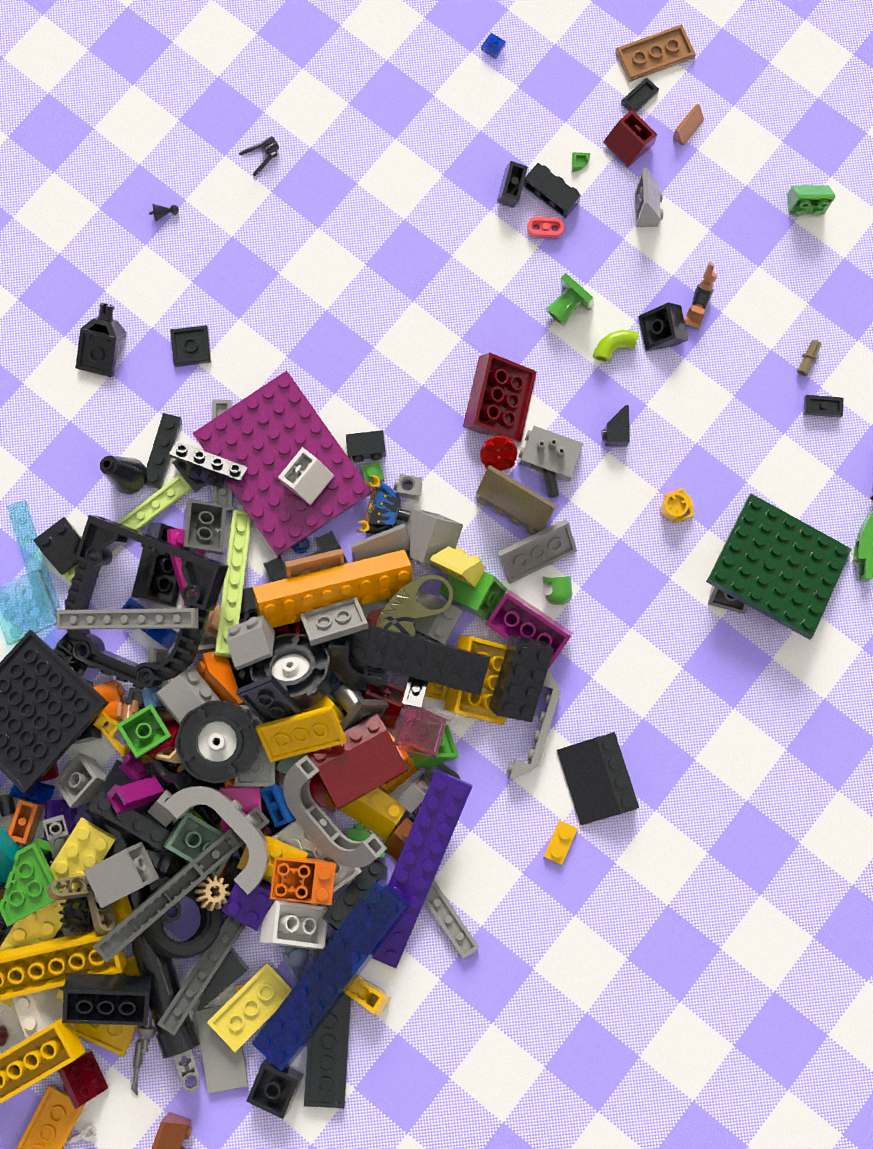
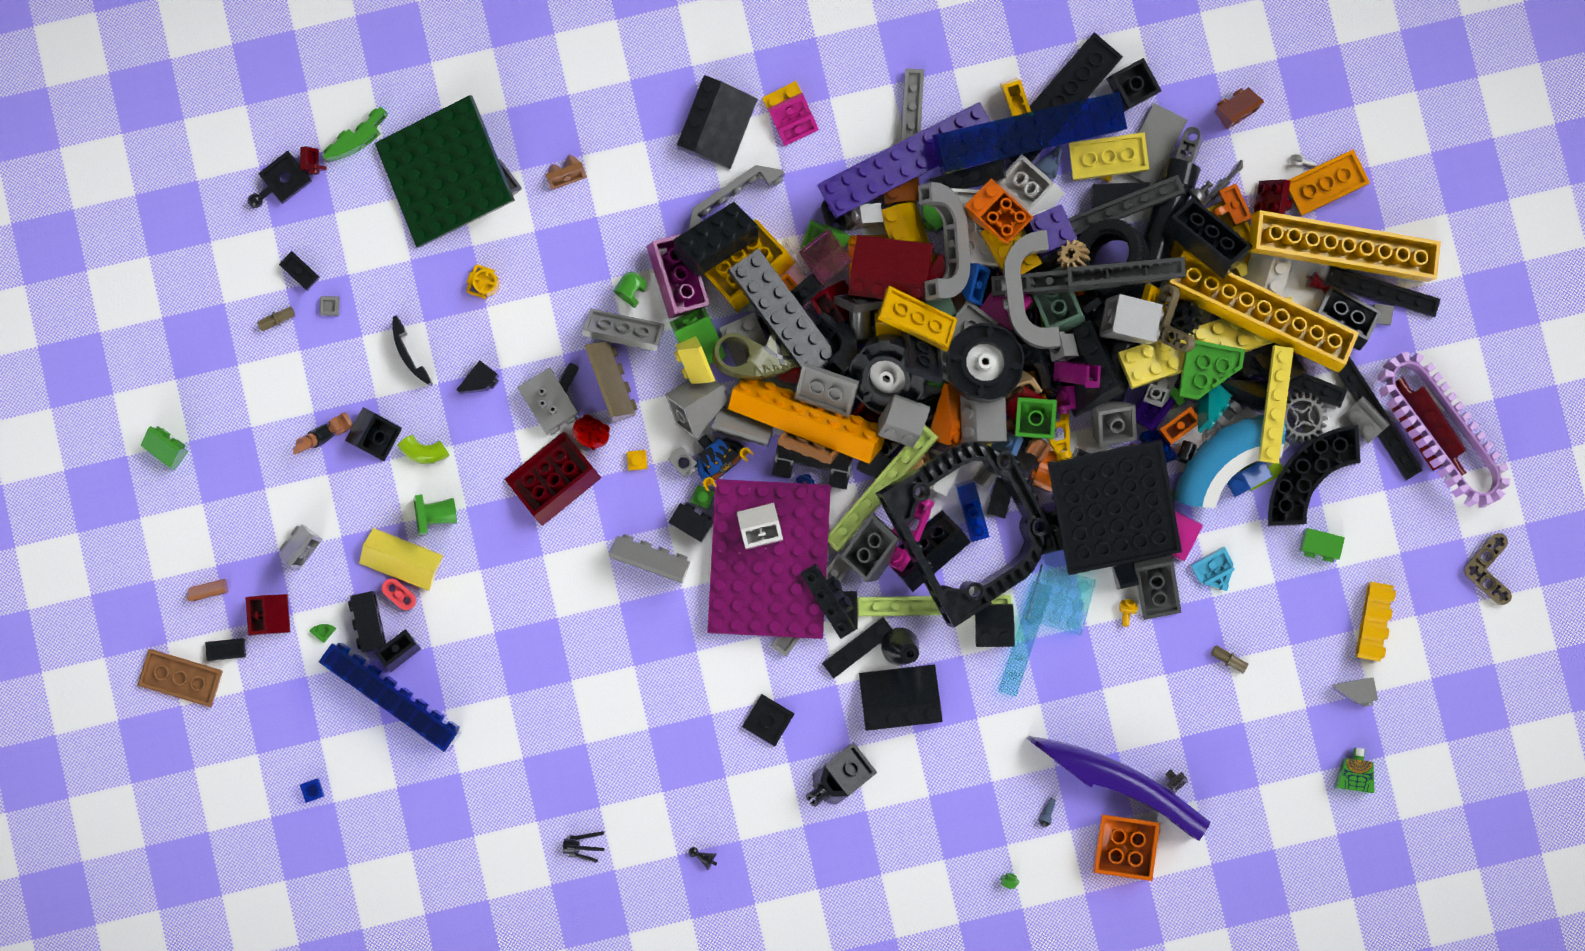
camera: 135 degrees left, 5 degrees up
(97, 432) = (900, 697): none -> black slope
(113, 1048) = (1233, 205): none -> orange plate
(128, 619) = (985, 516): light grey tile -> none
(133, 647) = (999, 499): none -> black plate
(375, 391) = (650, 559): none -> light grey slope
(446, 462) = (637, 460): none -> yellow plate
(489, 146) = (390, 697): none -> clear blue brick
(538, 830) = (793, 119): none -> dark pink slope
(566, 254) = (400, 559): none -> light yellow slope
(679, 647) = (570, 173): none -> medium nougat tile
(710, 419) = (398, 332): none -> black slope
(777, 398) = (329, 306): none -> light grey tile

